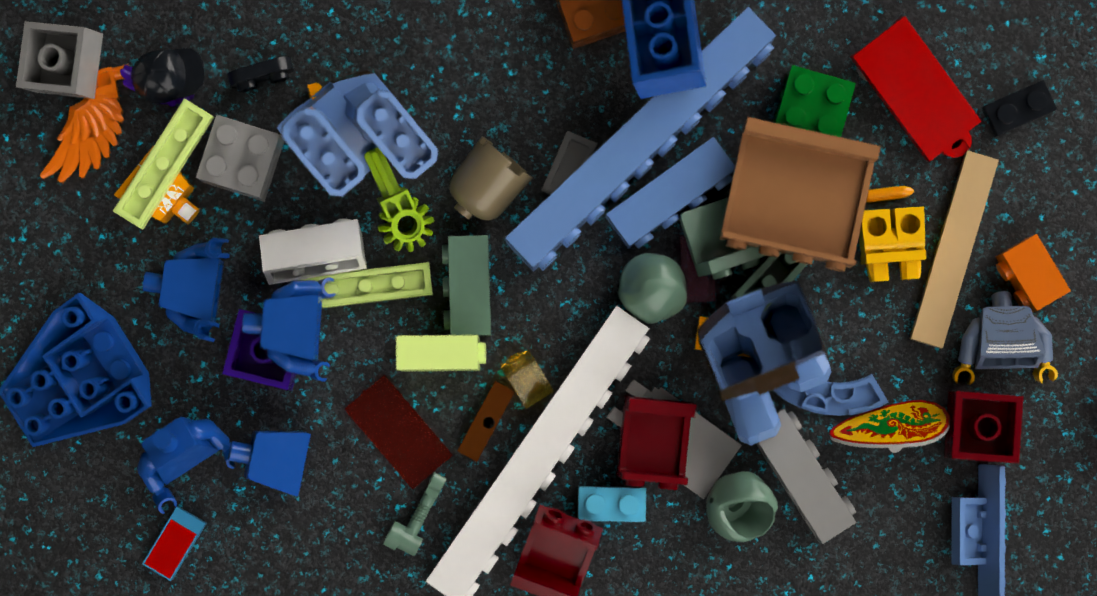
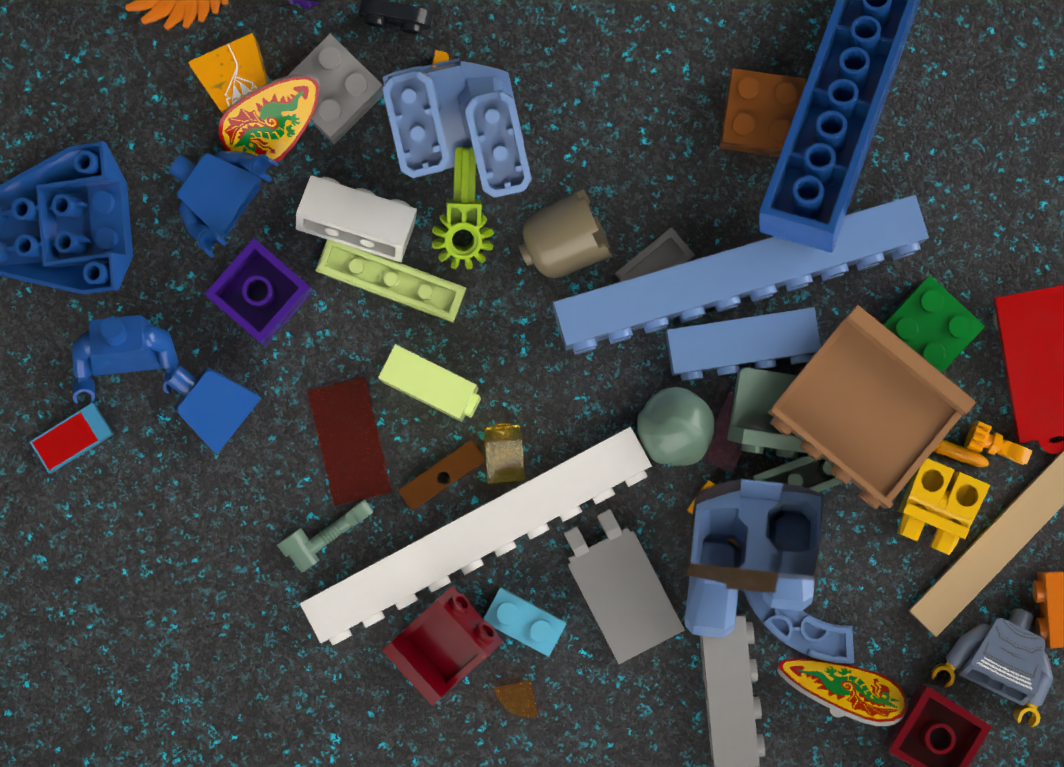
camera: 30 degrees right, 0 degrees up
(163, 164) = (252, 56): yellowish green tile -> none
(203, 205) = (271, 116): none -> shield
(292, 326) = (297, 282): blue torso -> none
(467, 285) = (492, 331): sand green brick -> none
(637, 567) = (518, 698): none -> clear orange tile
(654, 441) = (599, 582): dark red panel -> none
(741, 507) = (652, 691): sand green piece -> none
(896, 172) = (979, 438): none -> light orange piece

